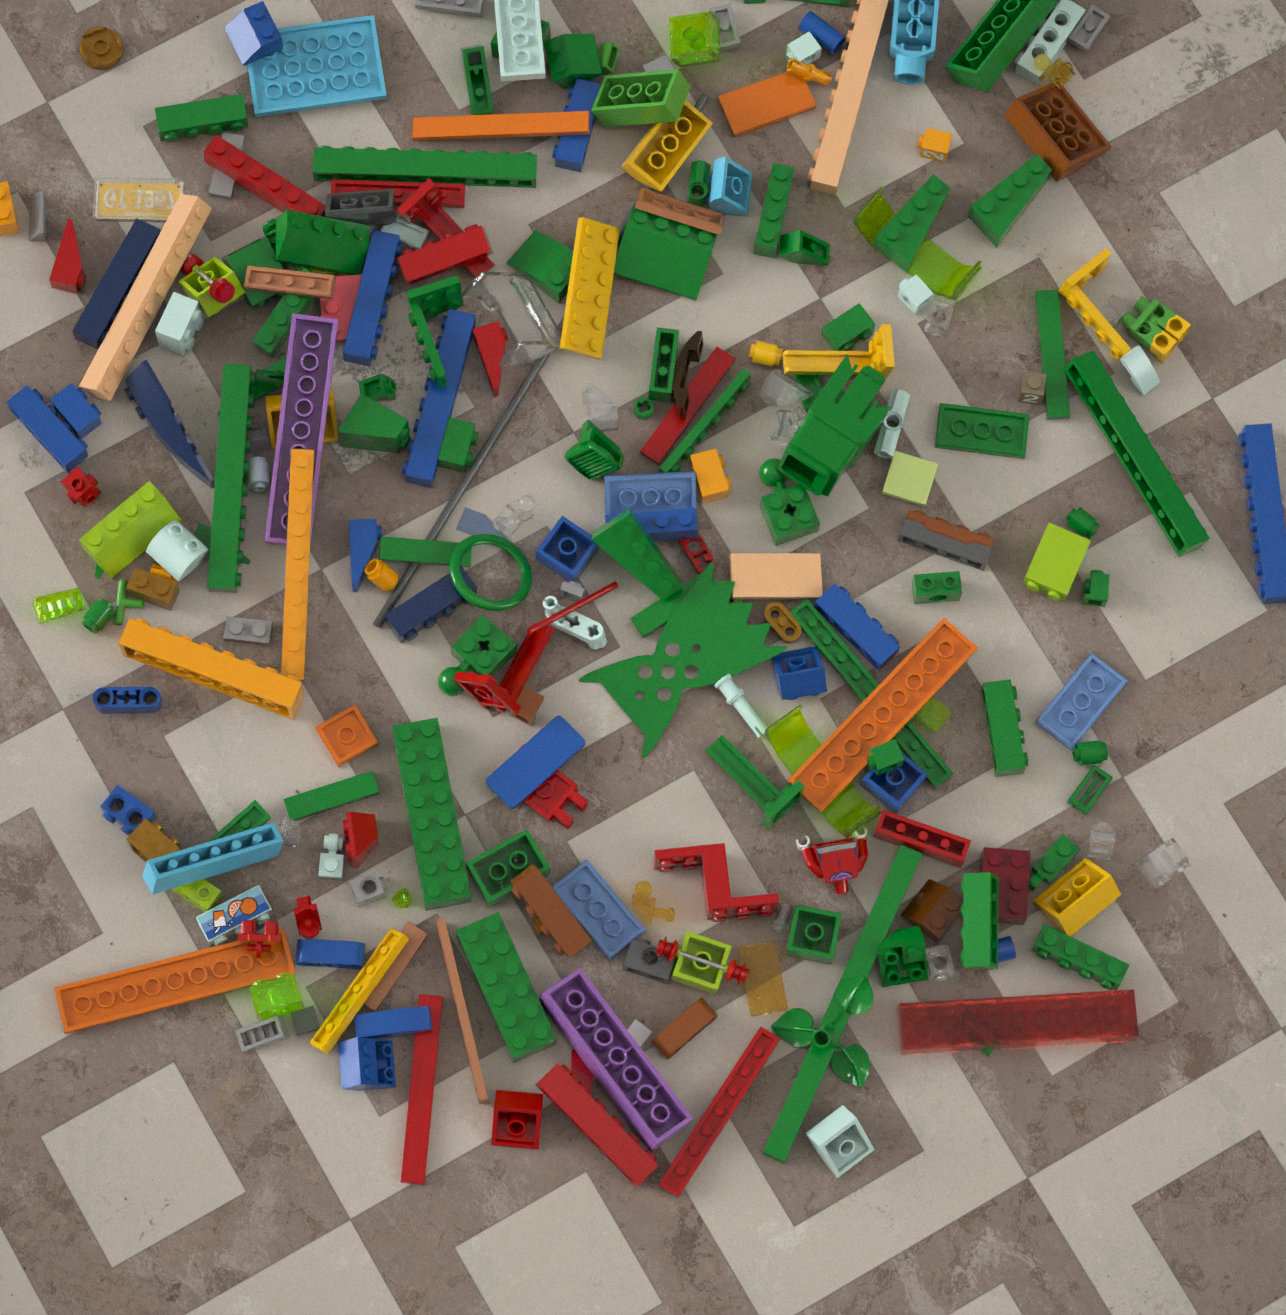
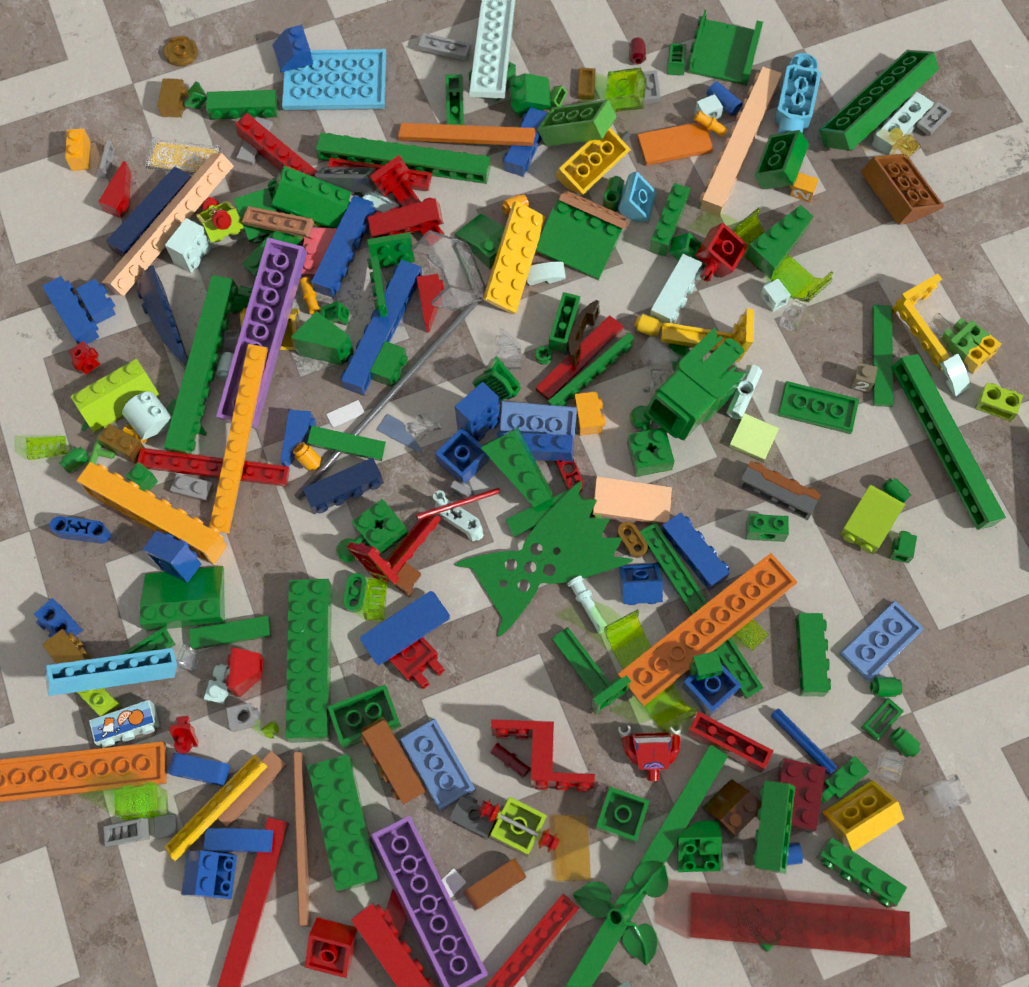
camera: 15 degrees right, 5 degrees down
(108, 119) = (172, 98): none -> pearl gold brick
(139, 112) = (196, 95): none -> green bracket
(187, 625) = (142, 477): none -> green brick
(249, 716) = (172, 555): none -> blue brick
(265, 602) = (211, 466): none -> red plate
(268, 763) = (179, 604): none -> green slope
(270, 934) = (148, 745): red hips -> none
(341, 369) = (309, 295): none -> light orange pin
(346, 735) = (253, 584): orange tile -> none
(414, 514) = (345, 413): none -> white sticker
(468, 594) = (379, 486): green wedge -> none
(468, 730) = (354, 593): none -> green plate
(495, 748) = (372, 611): none -> clear neon green slope
(575, 211) = (507, 203): none -> light orange brick
(579, 495) = (478, 412): none -> blue brick
(631, 299) = (547, 272): none -> light aqua slope
(642, 30) = (586, 83): none -> pearl gold tile
(646, 904) = (479, 766): clear yellow piece -> none
(680, 893) = (510, 760): none -> dark red pin
(794, 303) = (676, 290): none -> light aqua brick
(842, 248) = (720, 252): none -> red brick
(848, 329) = (718, 314): green brick -> none
(903, 114) = (781, 160): none -> green brick
(1004, 826) = (803, 741): none -> blue axle
(1006, 202) = (857, 234): green wedge -> none
(1116, 811) = (905, 742): none -> green brick
(1193, 402) = (998, 405): none -> lime brick

